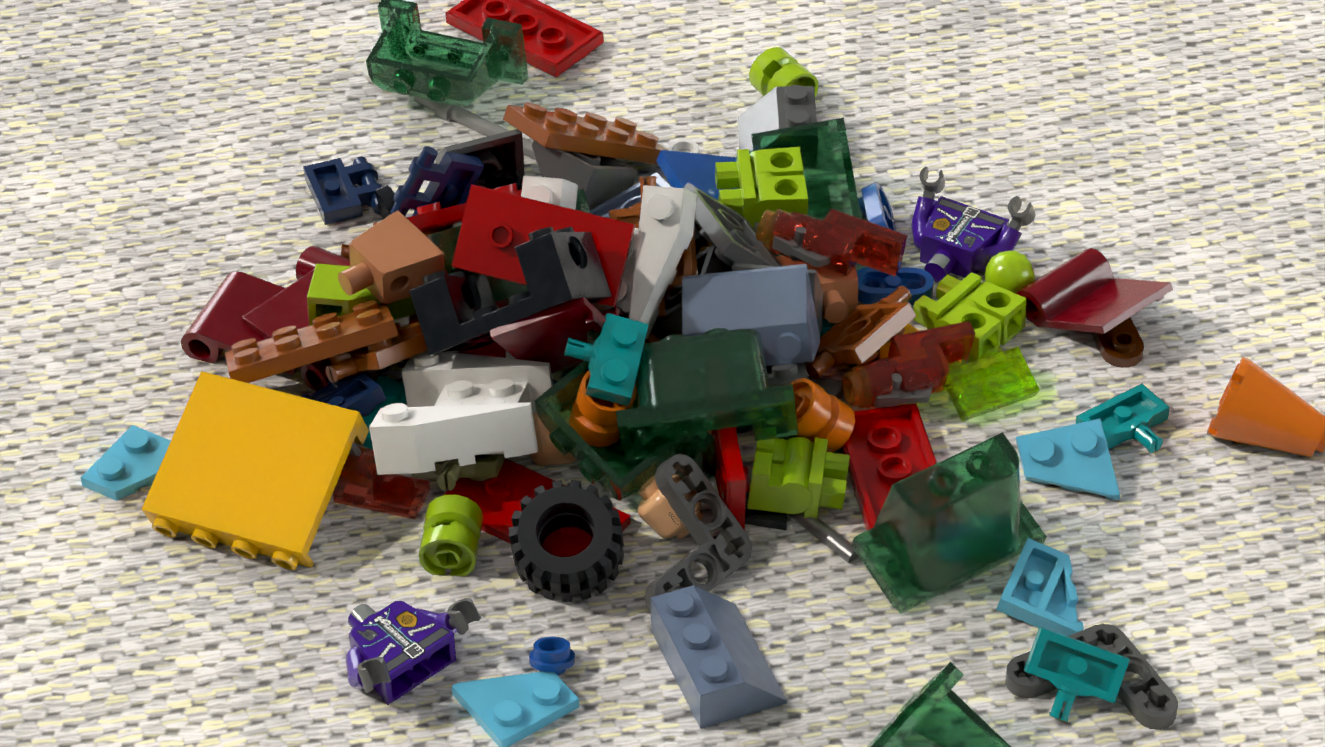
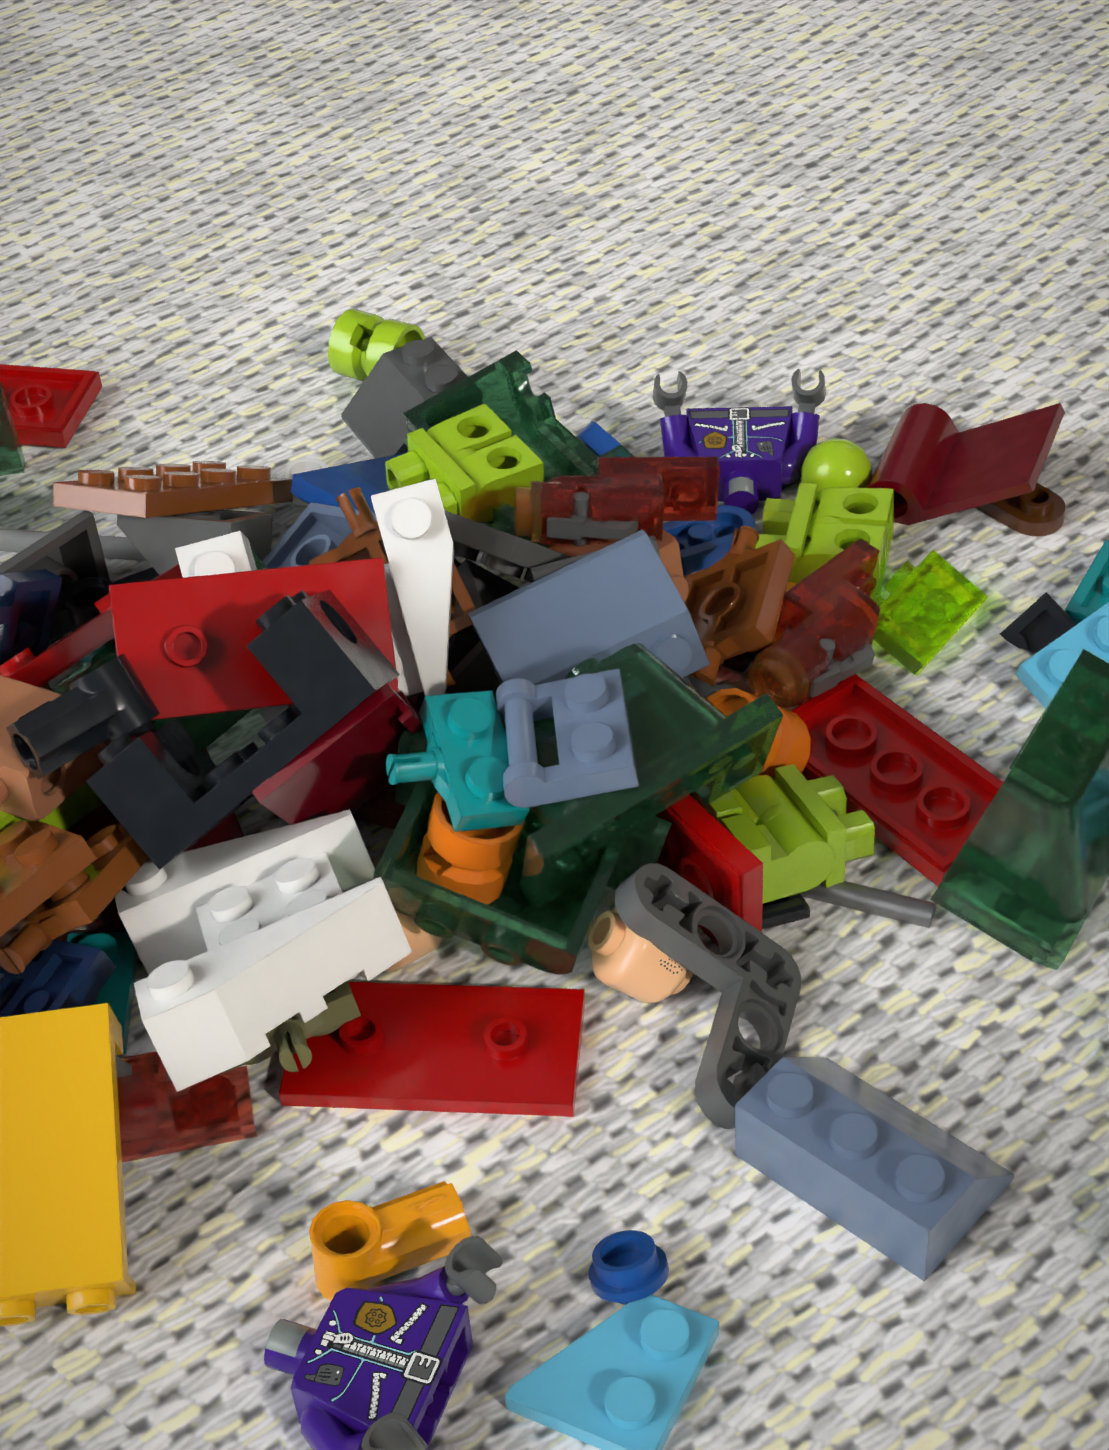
camera: 25 degrees left, 0 degrees up
(432, 253) = (91, 713): none -> black piece
(434, 591) = (367, 1244): none -> light orange piece
(451, 535) = (344, 1138): lime wheel -> none
(559, 509) = (551, 1014): black tyre -> none
(680, 372) = (590, 738): none -> sand blue plate
(1054, 416) = (1038, 625): none -> black tile

